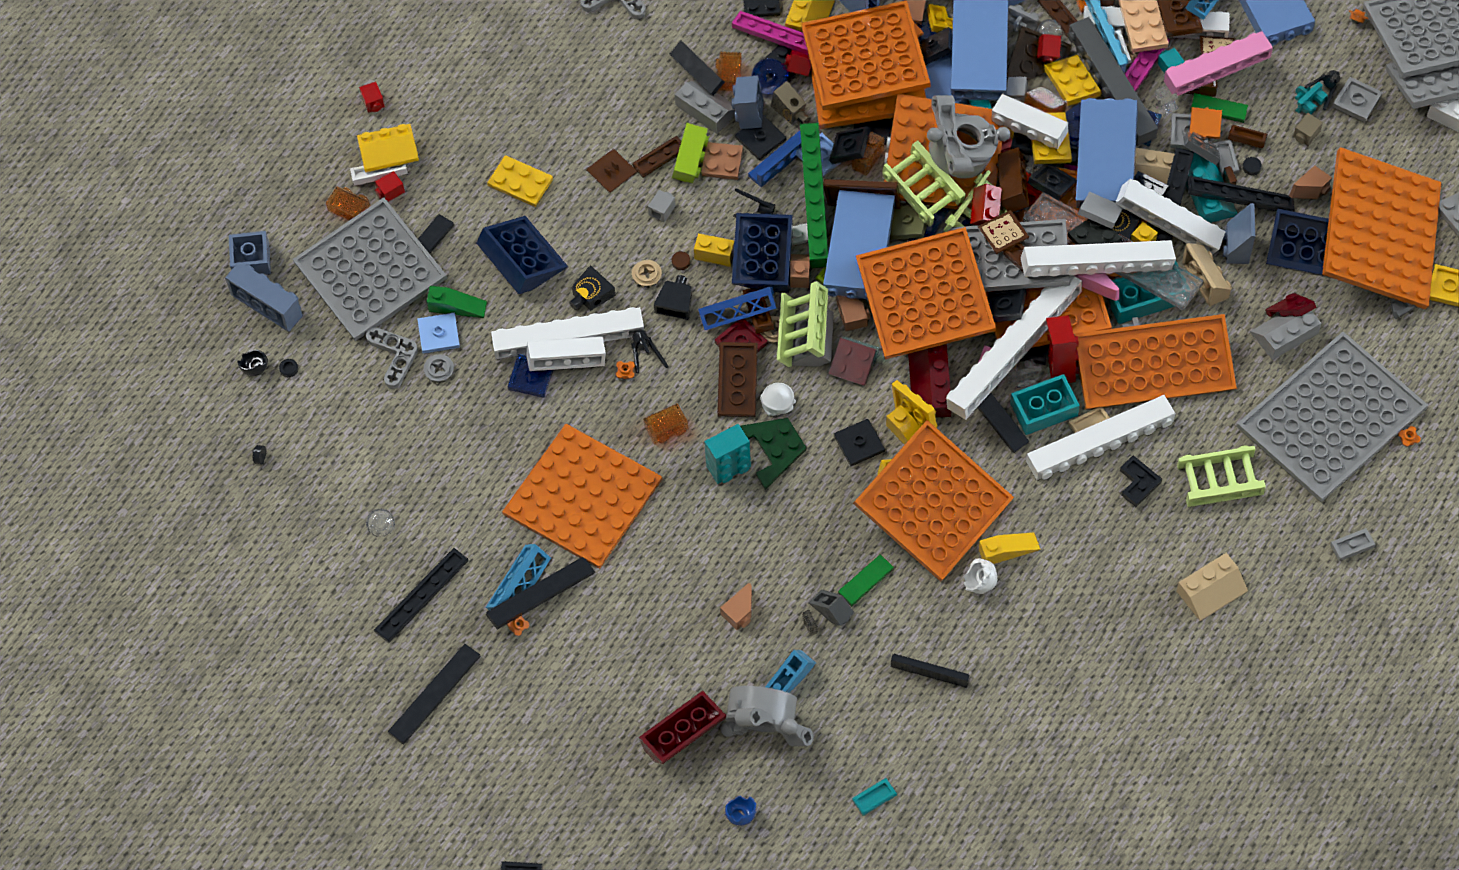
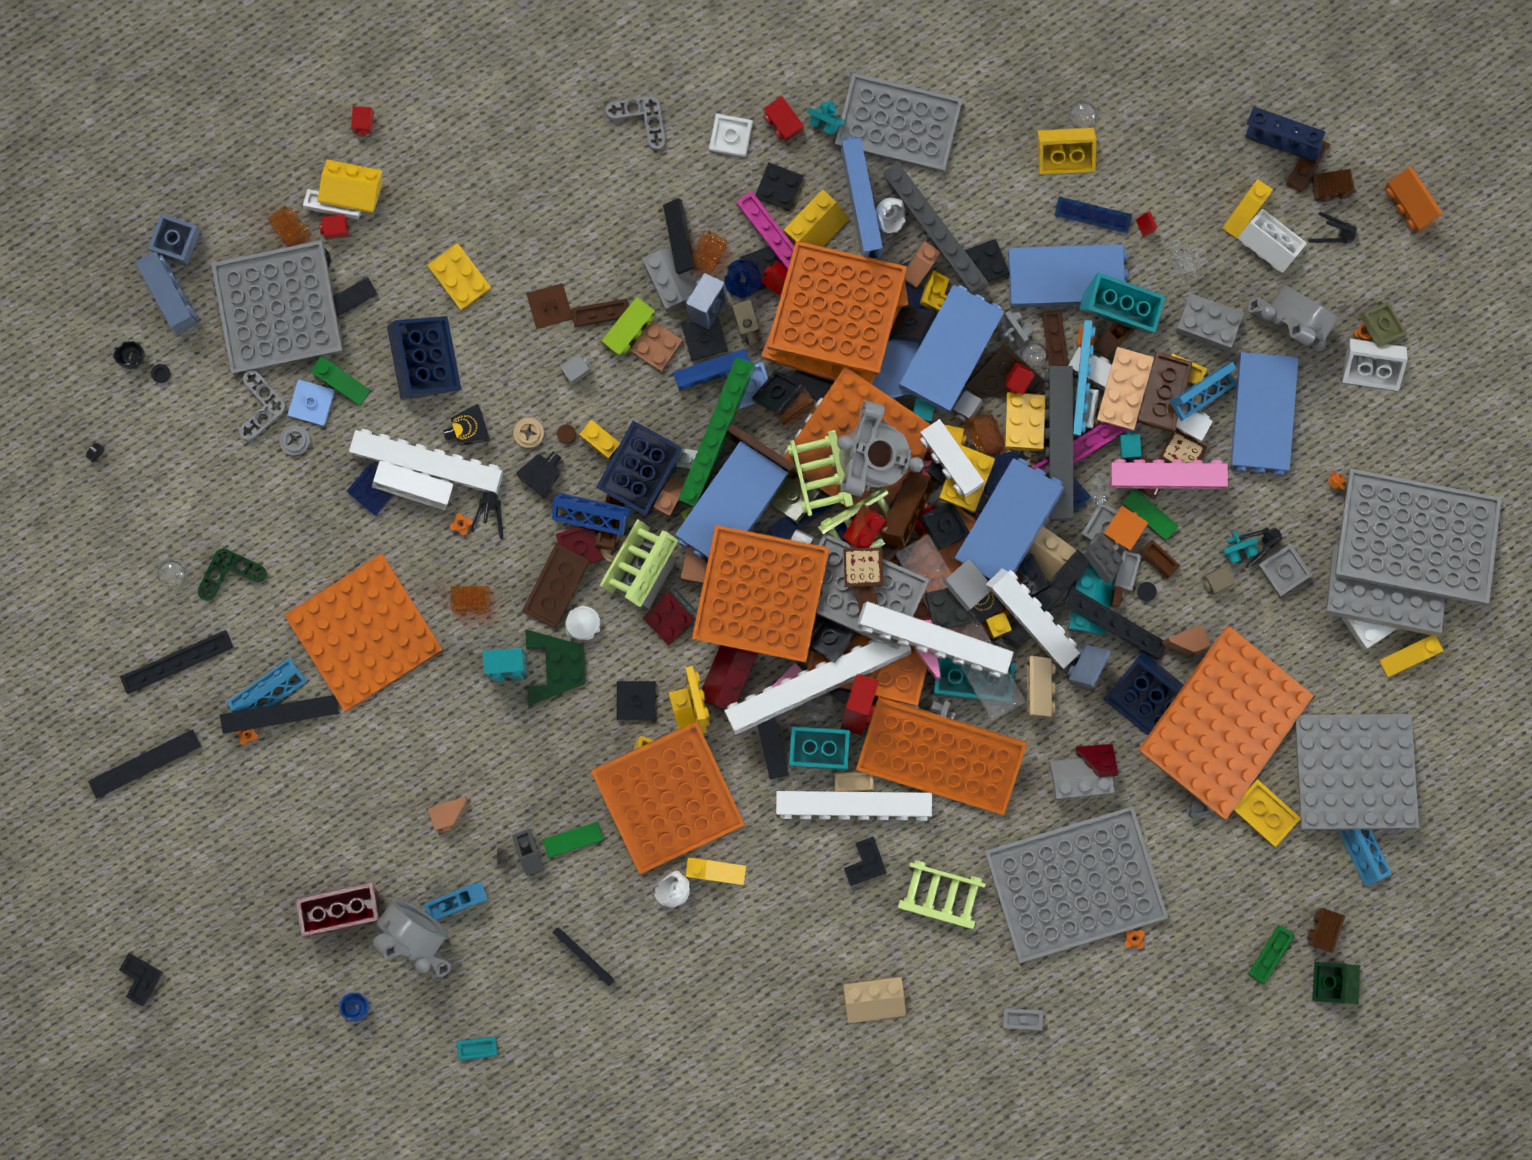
camera: 25 degrees right, 20 degrees up
(430, 493) = (230, 564): none -> dark green beam
(764, 206) = (670, 417): black plant -> none

